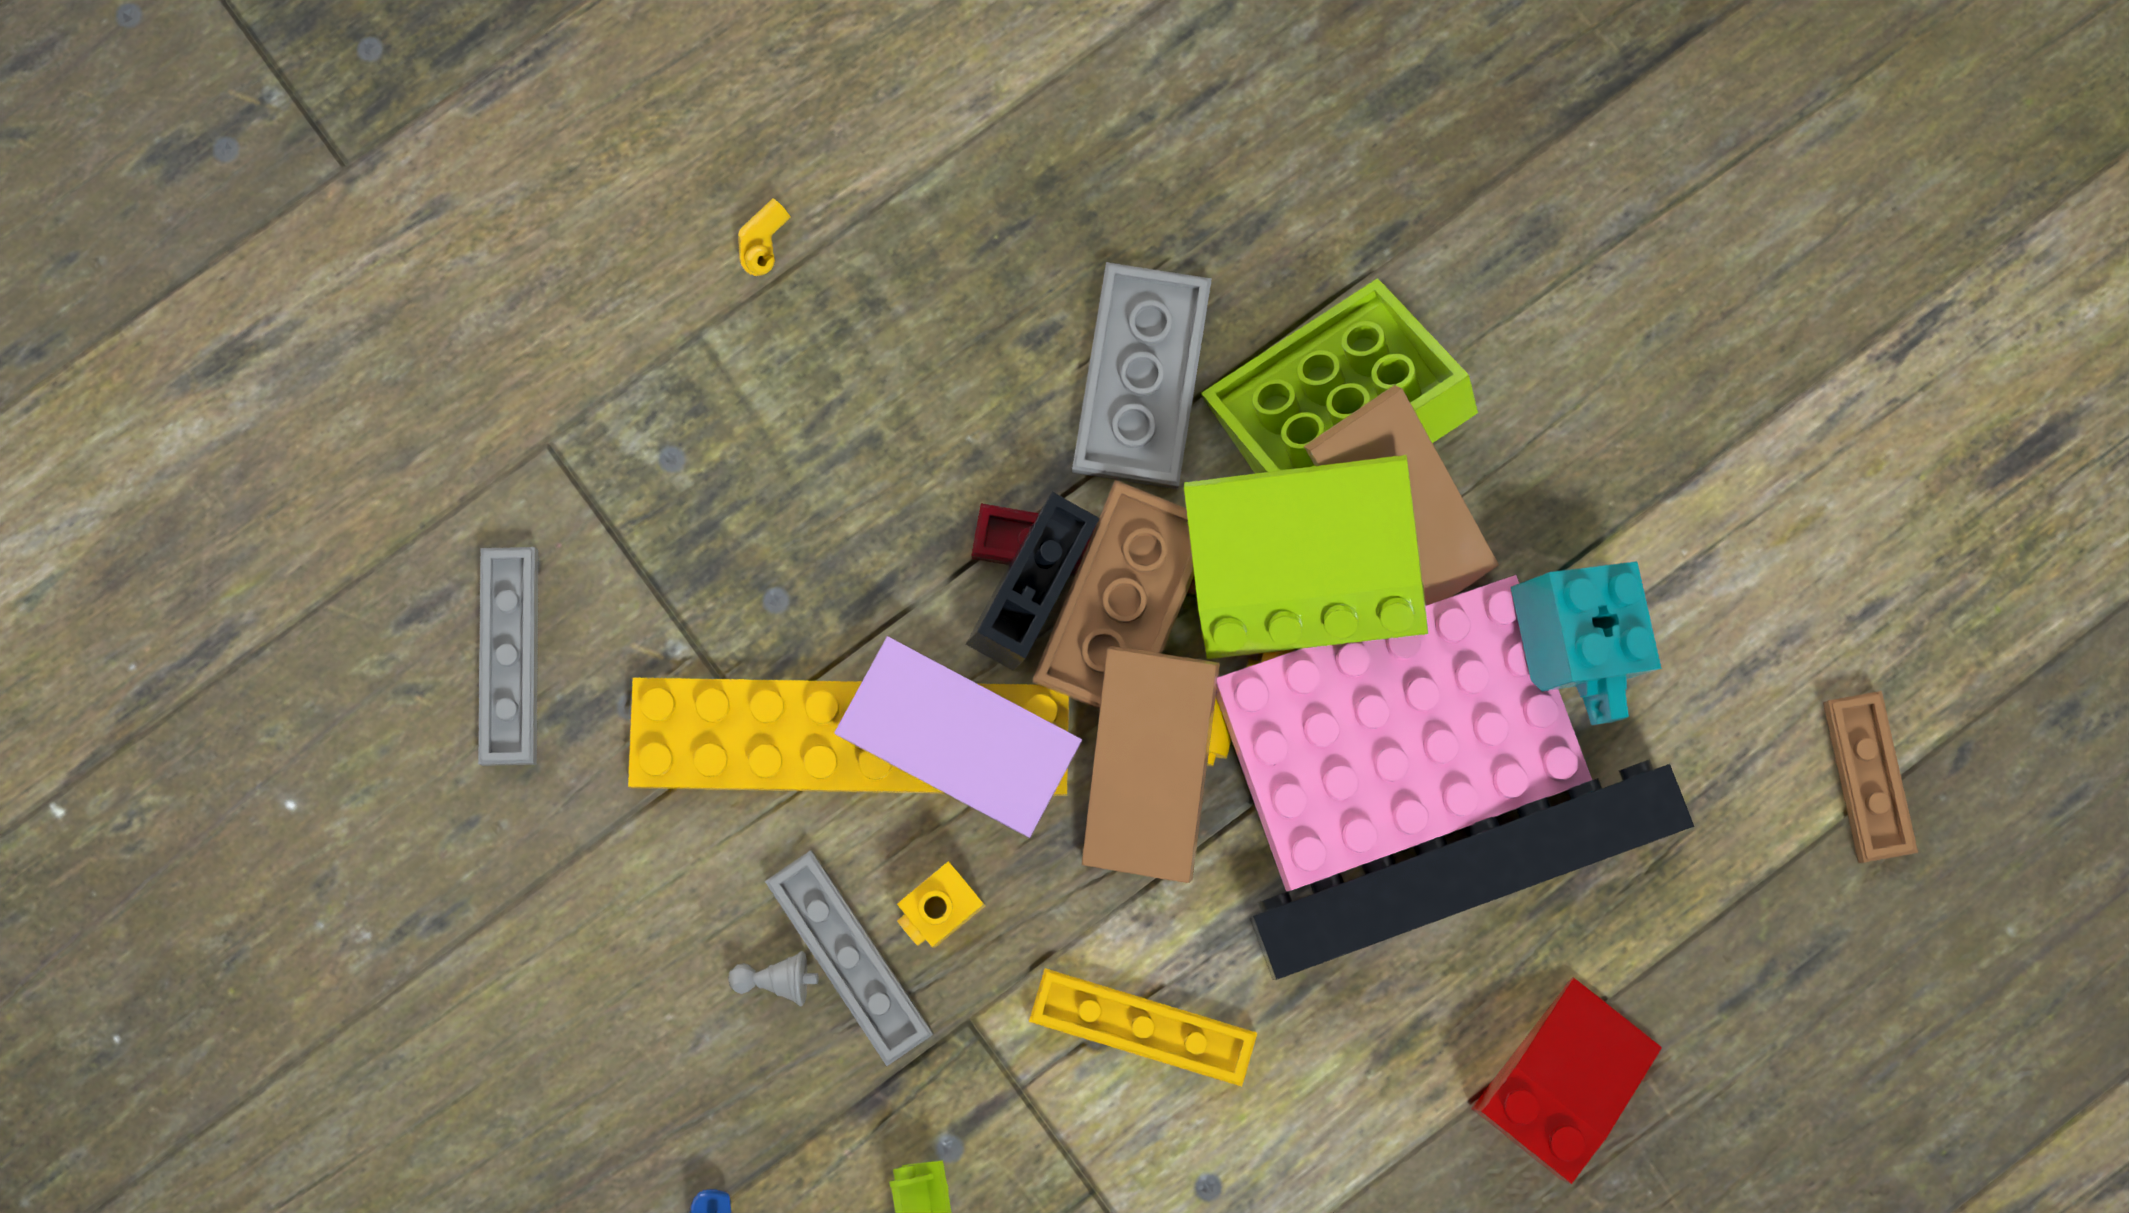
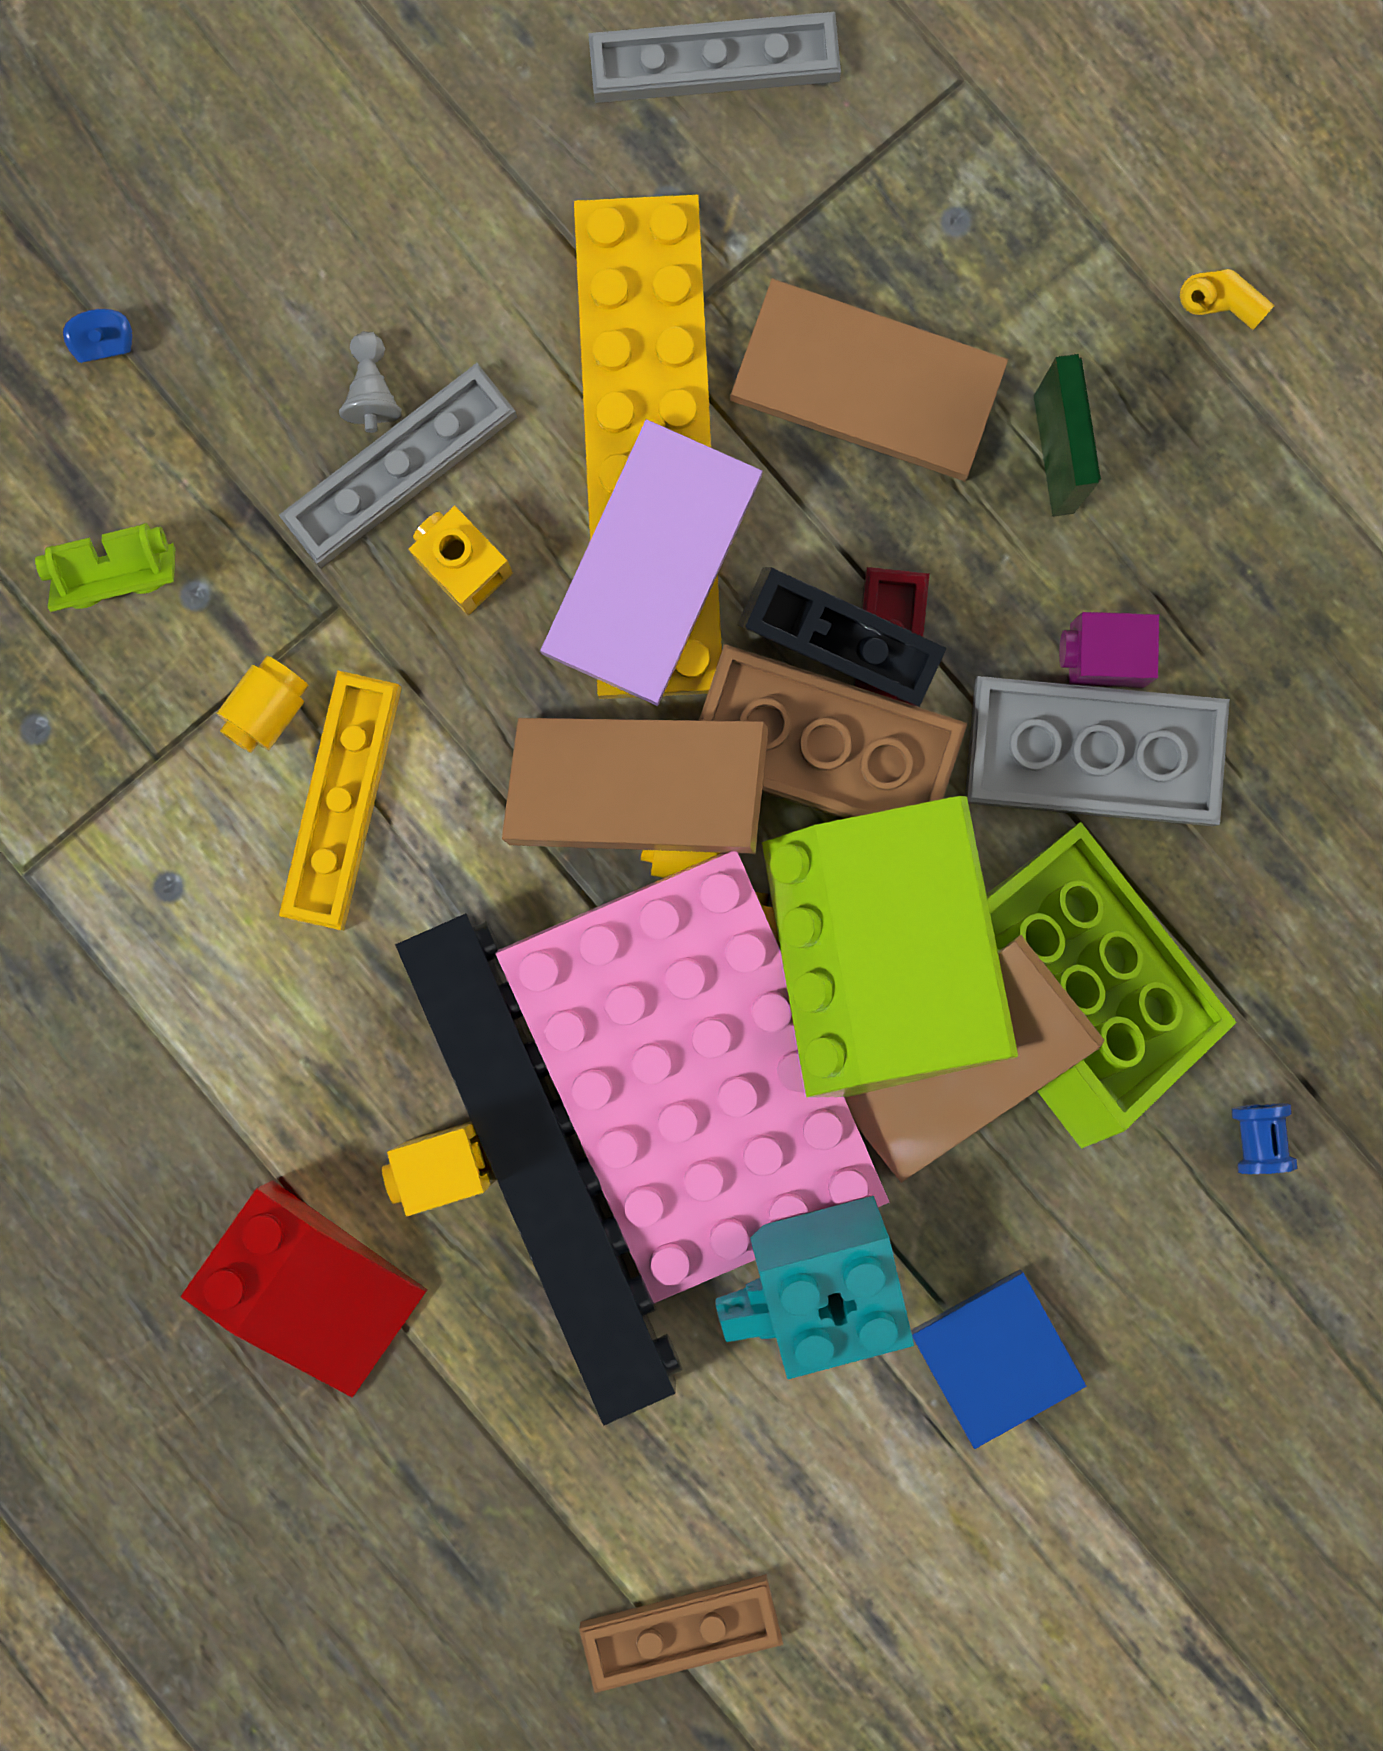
camera: 85 degrees right, 5 degrees up
(807, 543) = (868, 379): none -> medium nougat tile
(878, 378) = (1066, 435): none -> dark green tile
(1056, 1089) = (262, 705): none -> yellow brick
(1058, 356) = (1111, 649): none -> magenta brick
(1471, 953) = (437, 1169): none -> yellow brick
(1476, 263) = (1264, 1138): none -> blue bush
(1649, 495) = (997, 1359): none -> blue tile

